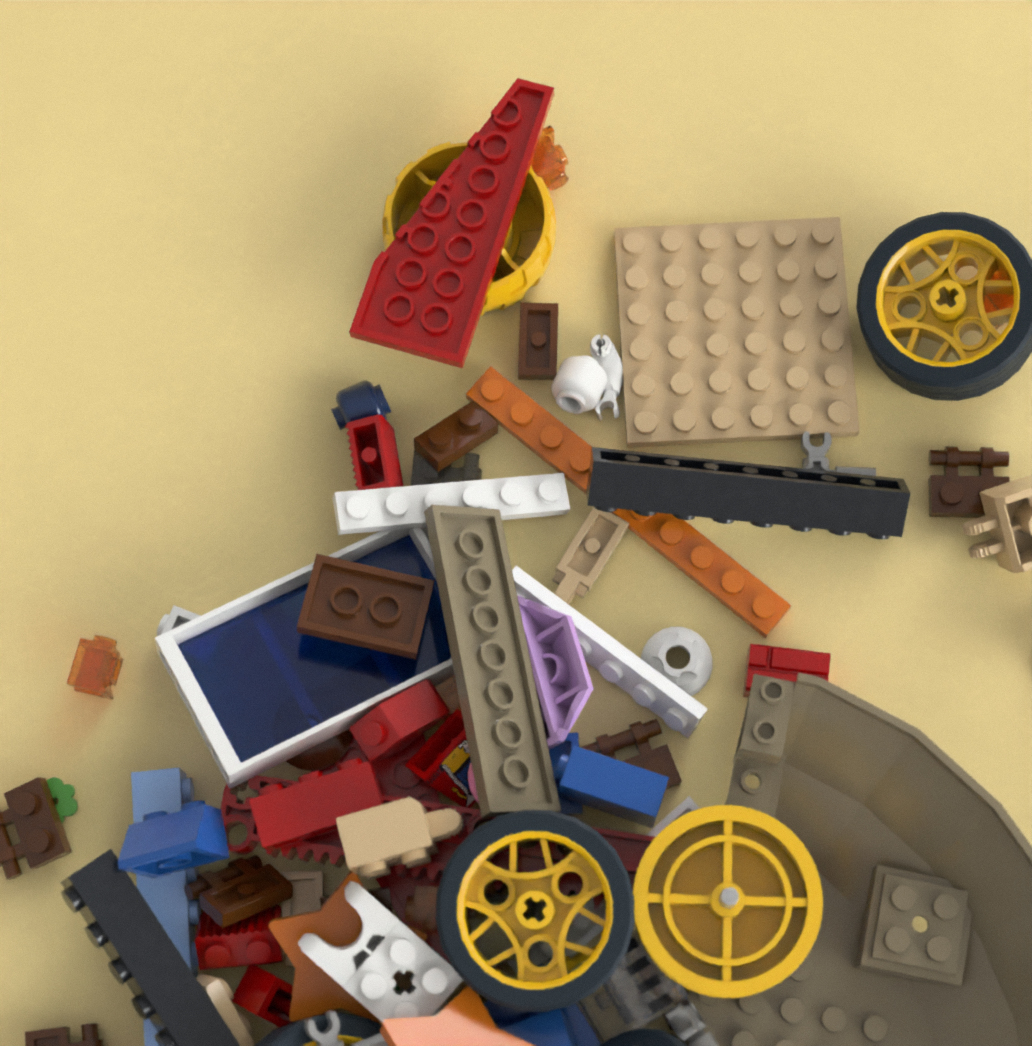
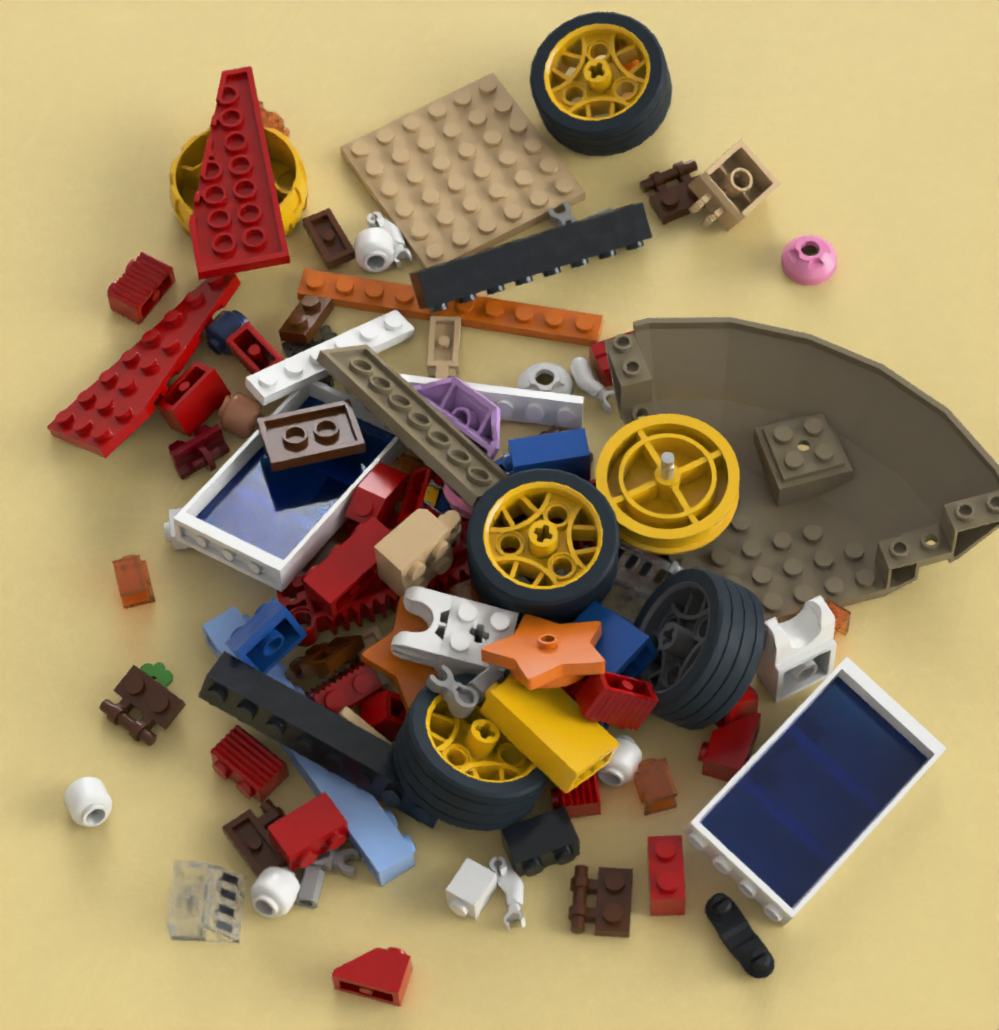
camera: 30 degrees left, 15 degrees down
(92, 981) = (248, 764): none -> red brick
(200, 431) = (125, 393): none -> red wing
(251, 544) = (199, 451): none -> dark red hips
(276, 474) = (192, 398): none -> red brick
(299, 297) = (140, 287): none -> red brick
(316, 521) = (240, 414): none -> nougat head
(725, 679) = (585, 380): none -> white arm

